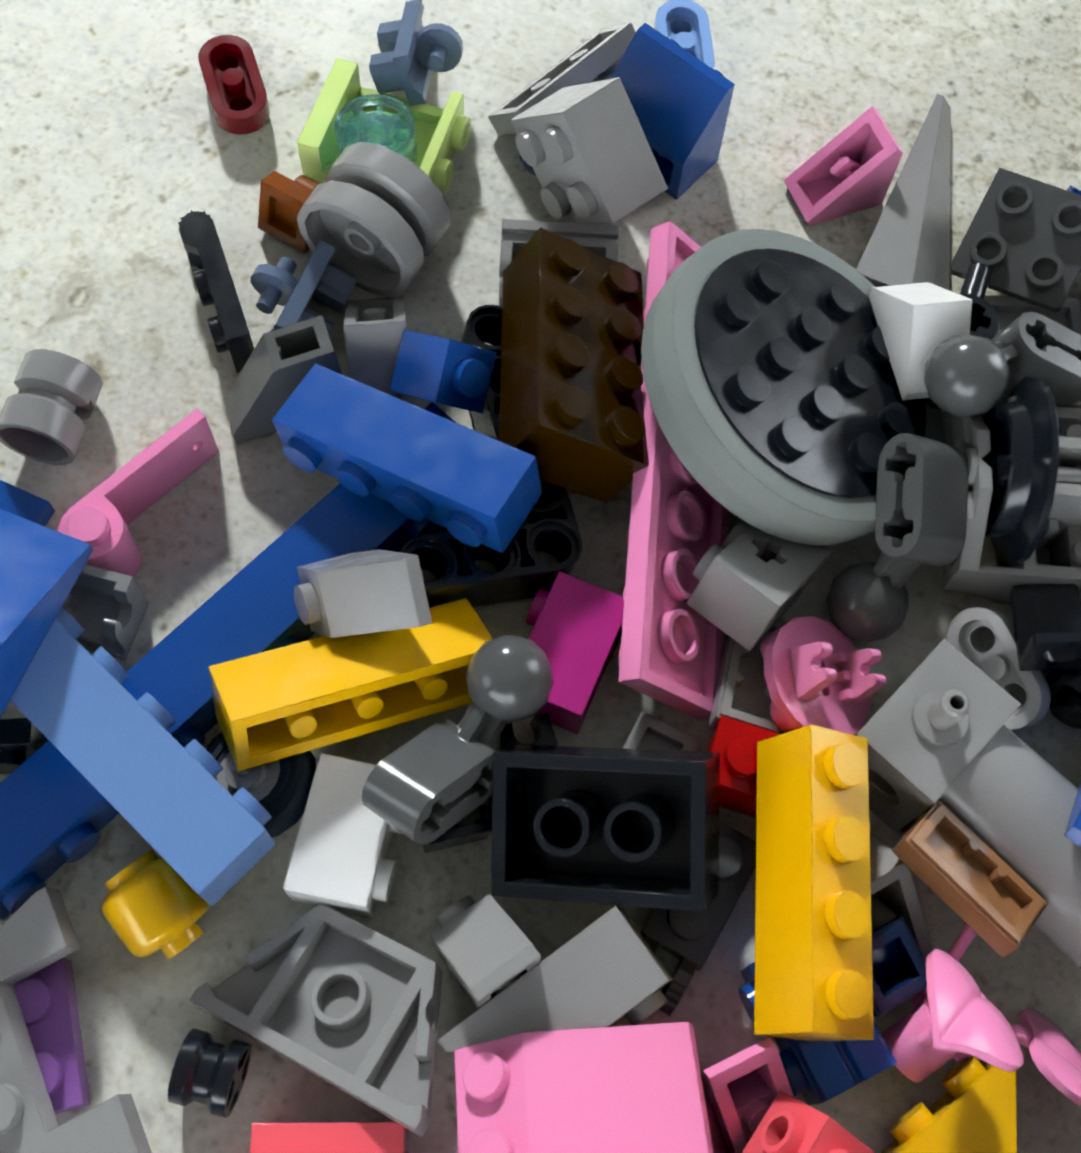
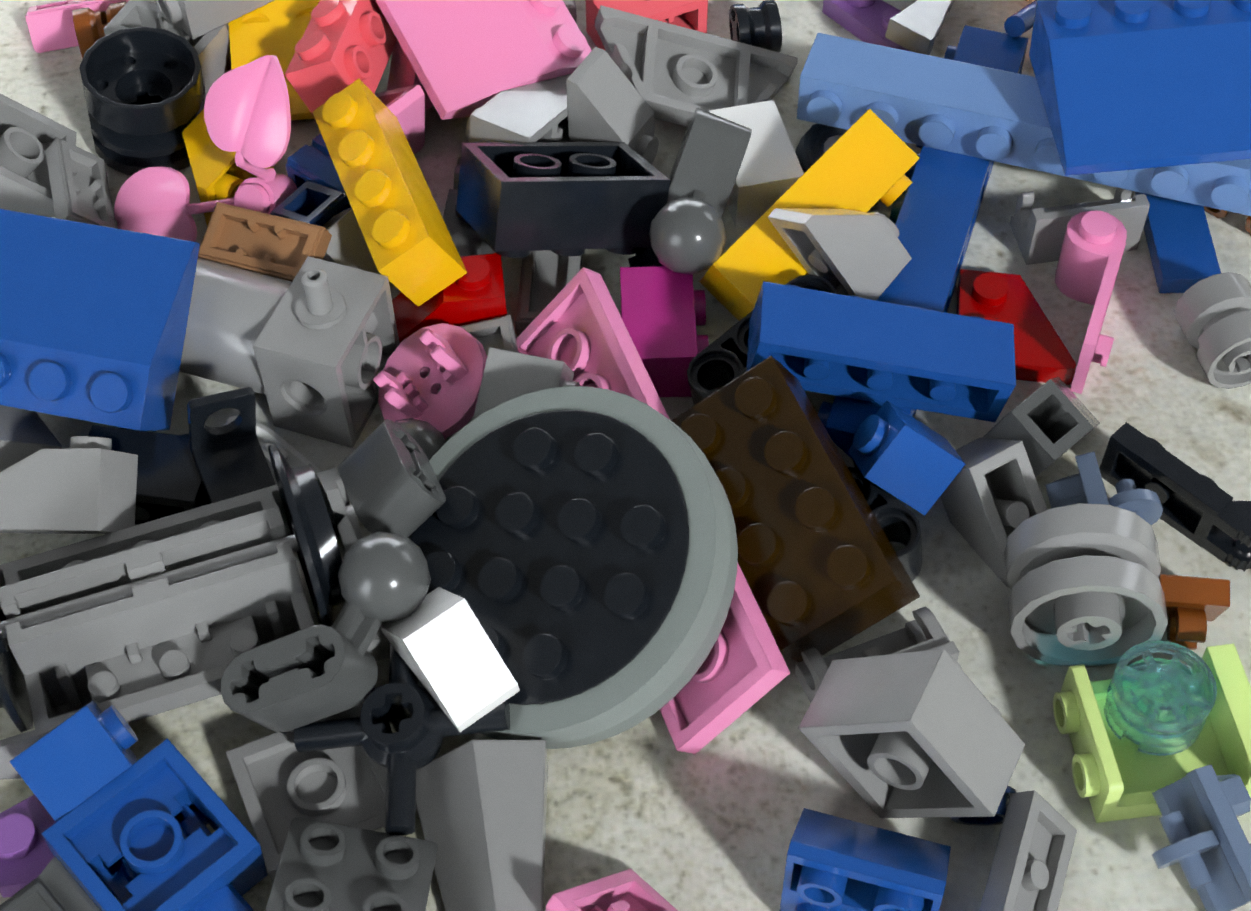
camera: 160 degrees right, 15 degrees down
(231, 521) = (1007, 299): none -> red wing

